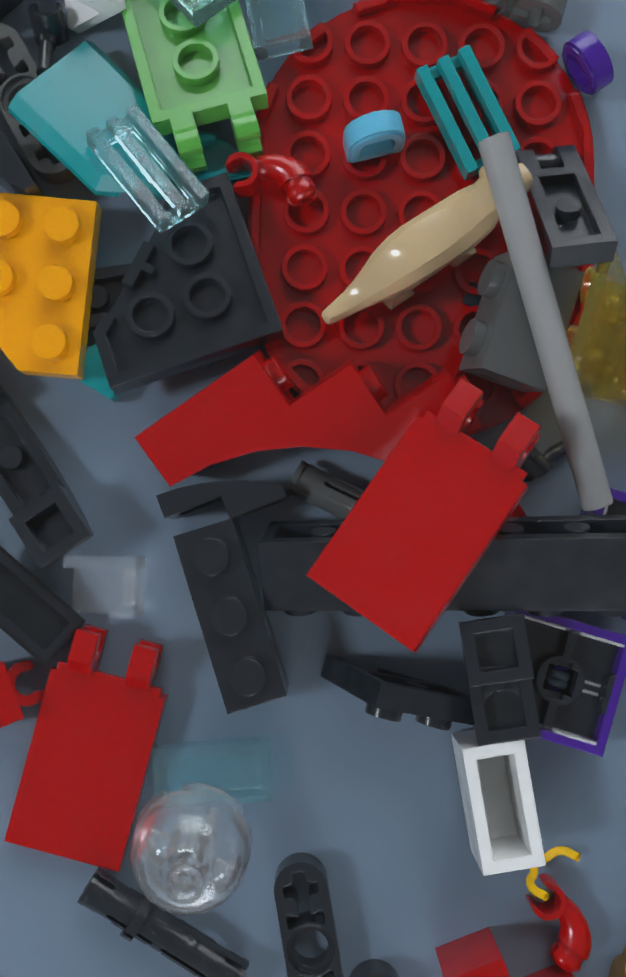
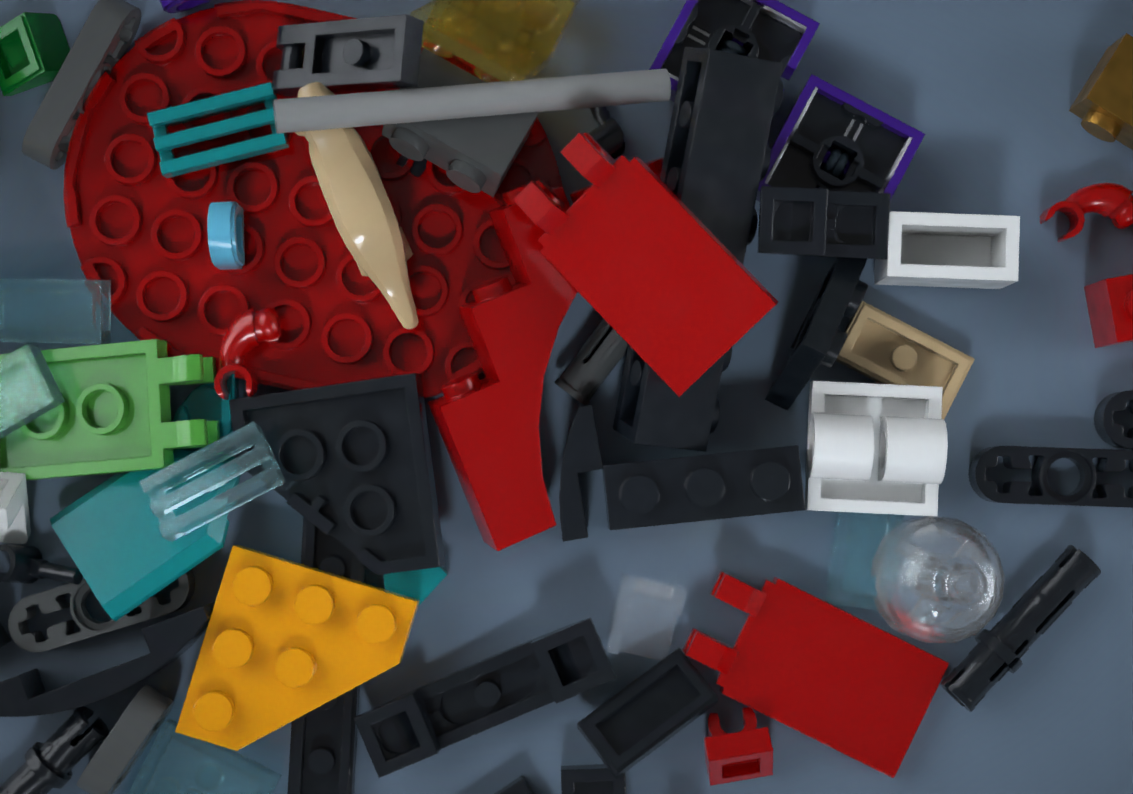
camera: 80 degrees left, 0 degrees up
(299, 768) = (875, 448): none -> white plate
(368, 792) = (901, 354): none -> tan tile
(549, 855) = (1026, 228): yellow piece -> none

